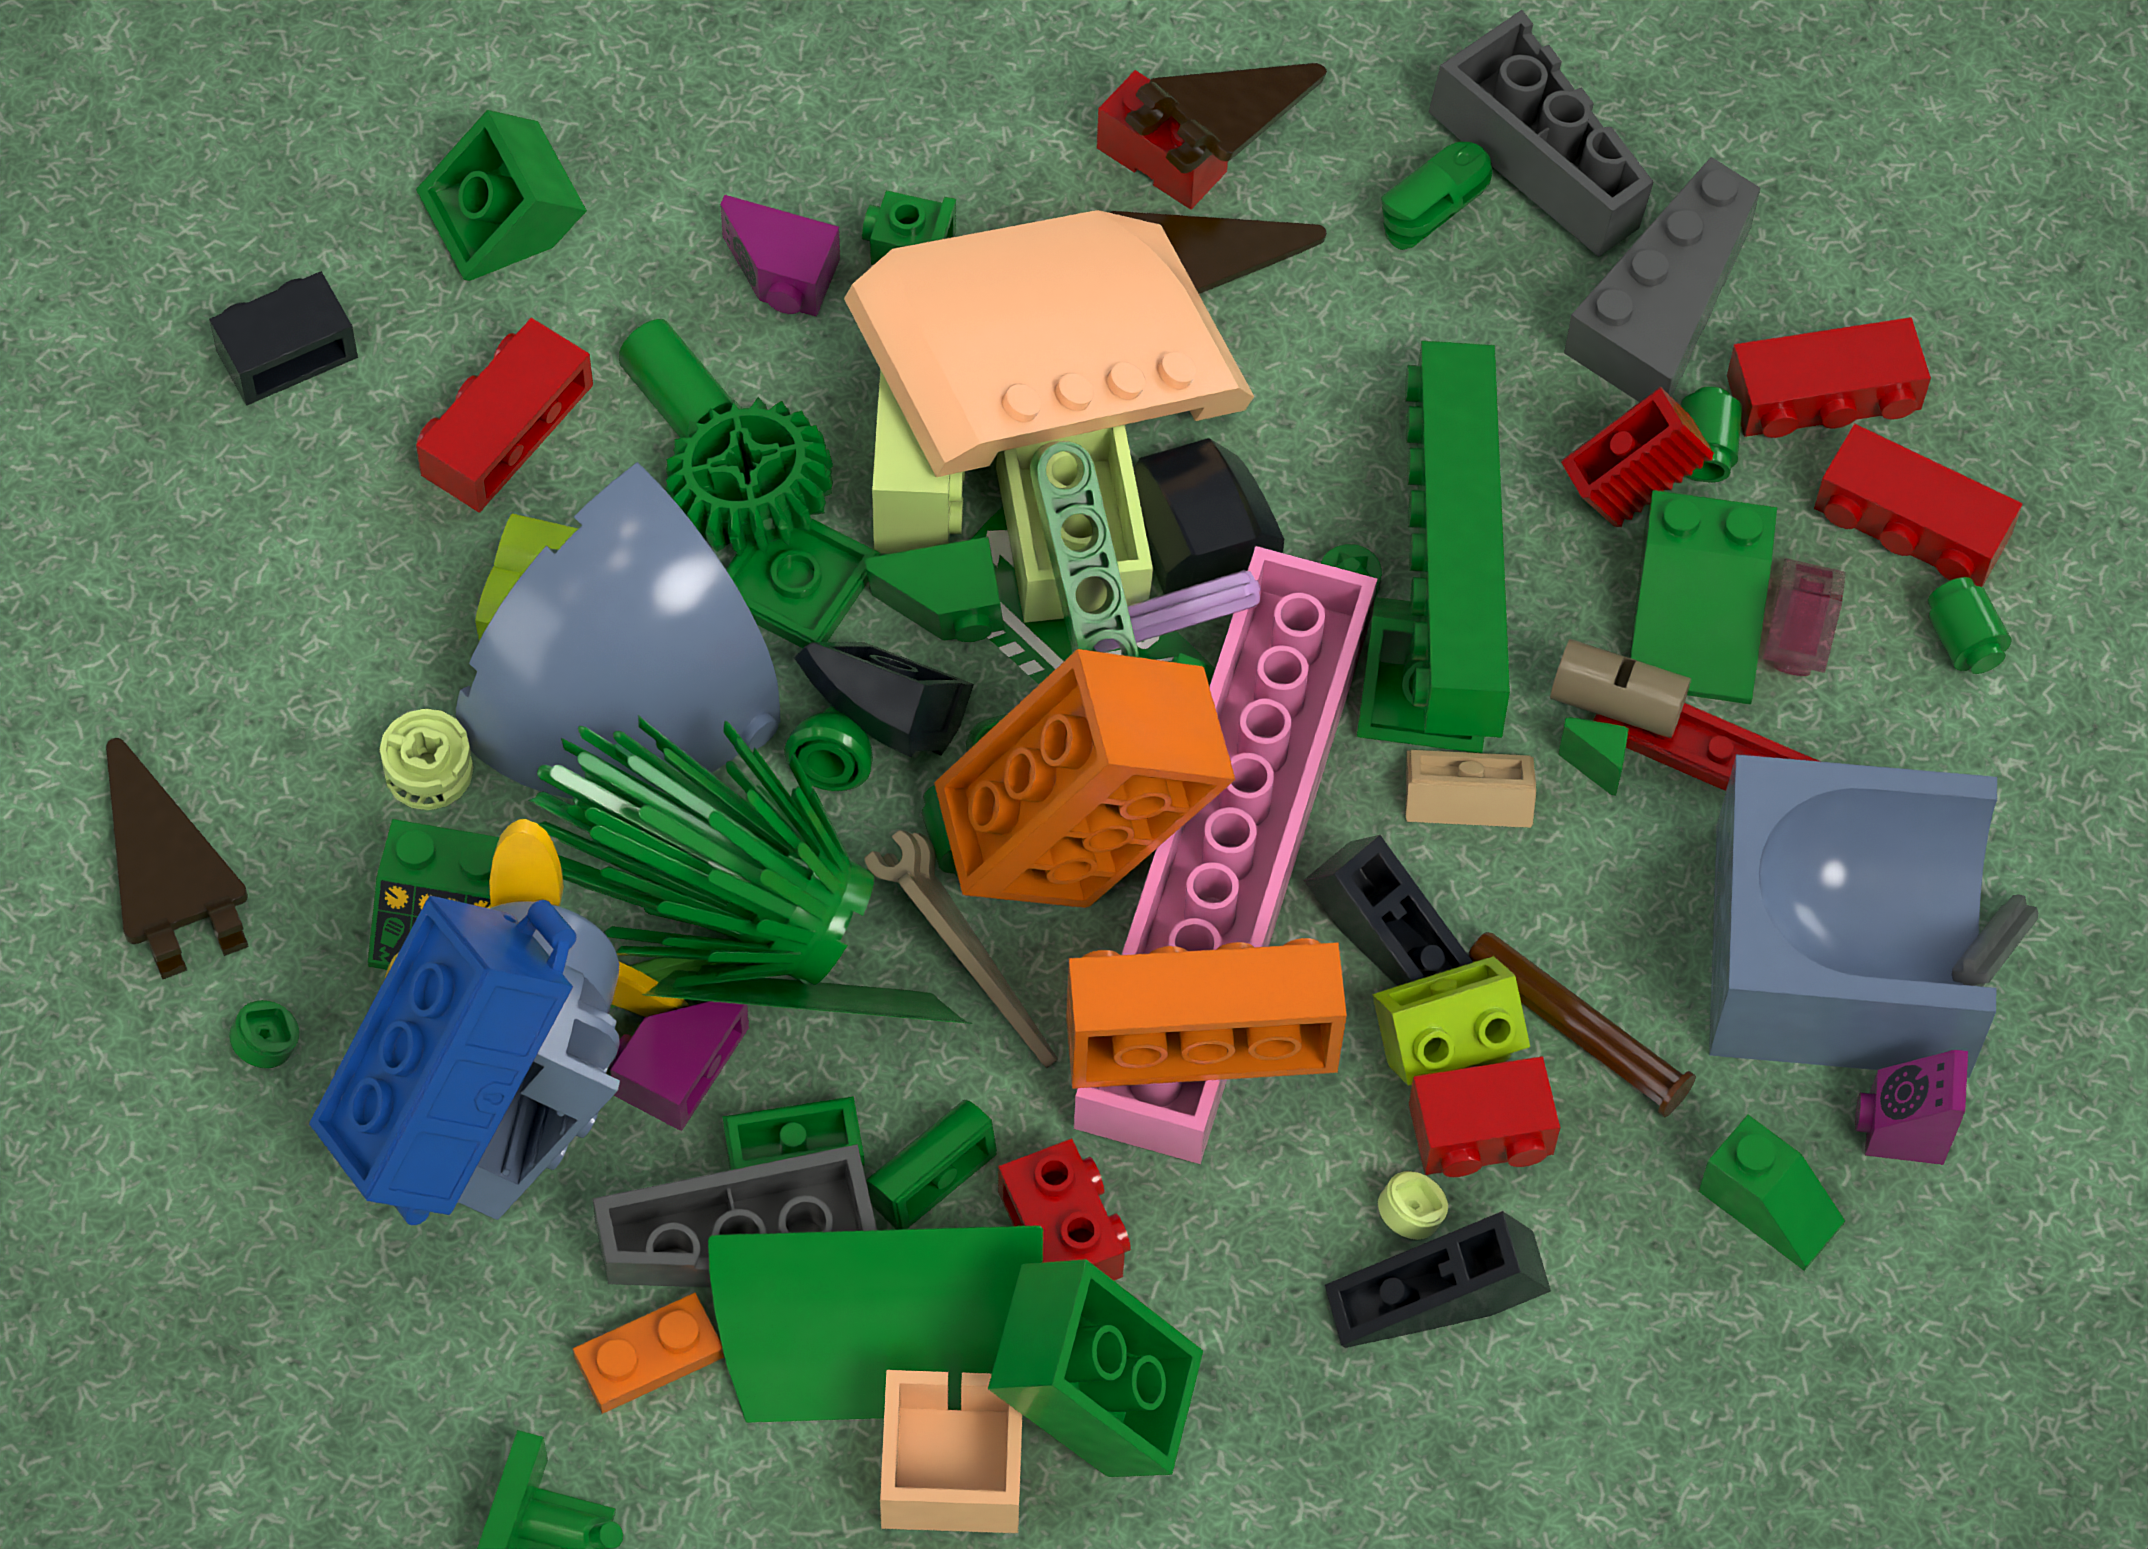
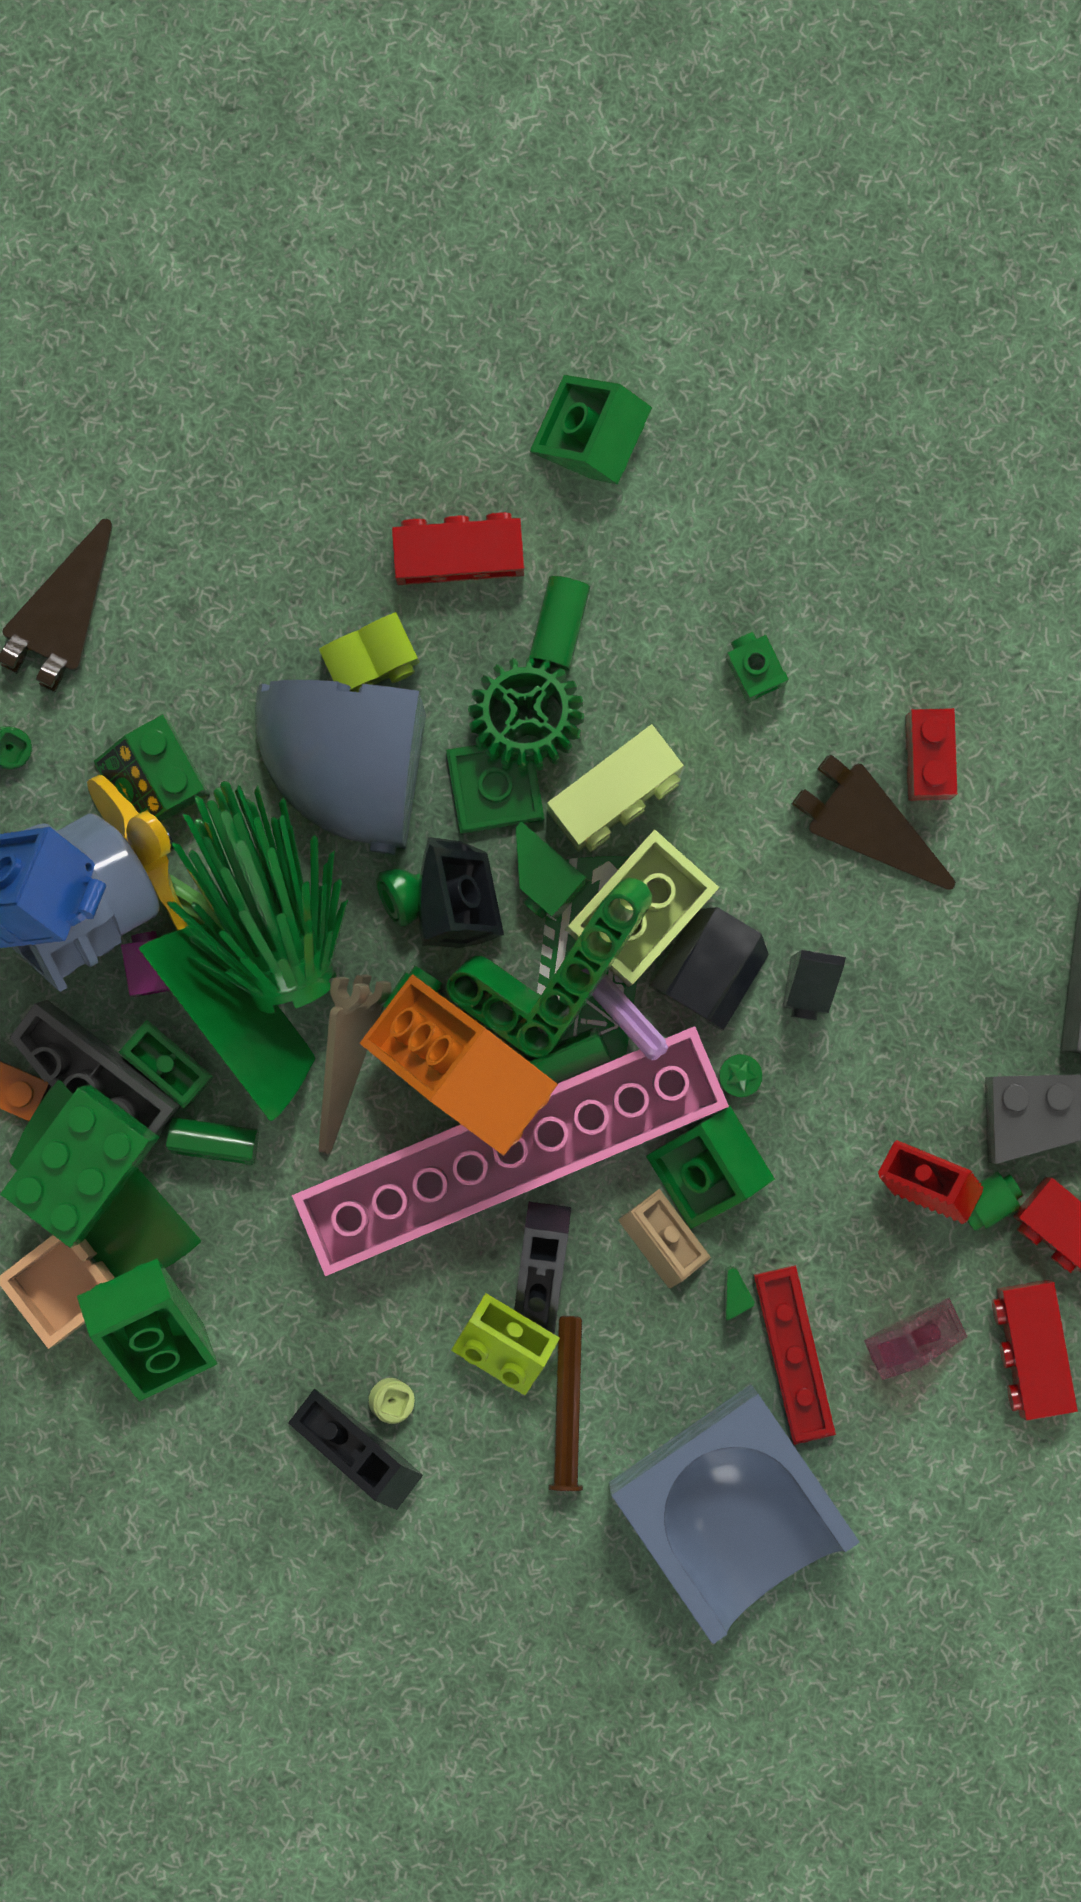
camera: 55 degrees right, 25 degrees up
(283, 337) = (406, 391): black piece -> none
(426, 757) = (225, 691): yellowish green wheel -> none
(781, 254) = (681, 612): magenta slope -> none
(834, 1272) = (79, 1165): none -> green brick
(1041, 336) = (728, 807): light nougat slope -> none
(1062, 1197) = (234, 1234): red brick -> none
(1205, 1014) = (370, 1237): orange brick -> none
(1221, 109) = (972, 777): dark brown flag -> none
(1307, 401) = (812, 983): none -> black slope
(1435, 193) = (1026, 930): green arm -> none
(1458, 540) = (788, 1132): green brick -> none
(1484, 1117) = (464, 1404): red brick -> none
(1620, 688) = (777, 1281): dark tan pin -> none
(1704, 591) = (878, 1276): green slope -> none
(1771, 1192) = (546, 1579): green slope -> none
(1915, 1108) = (649, 1621): magenta slope -> none
(1968, 626) = (981, 1433): green brick -> none
(1995, 942) = (780, 1595): dark grey axle -> none

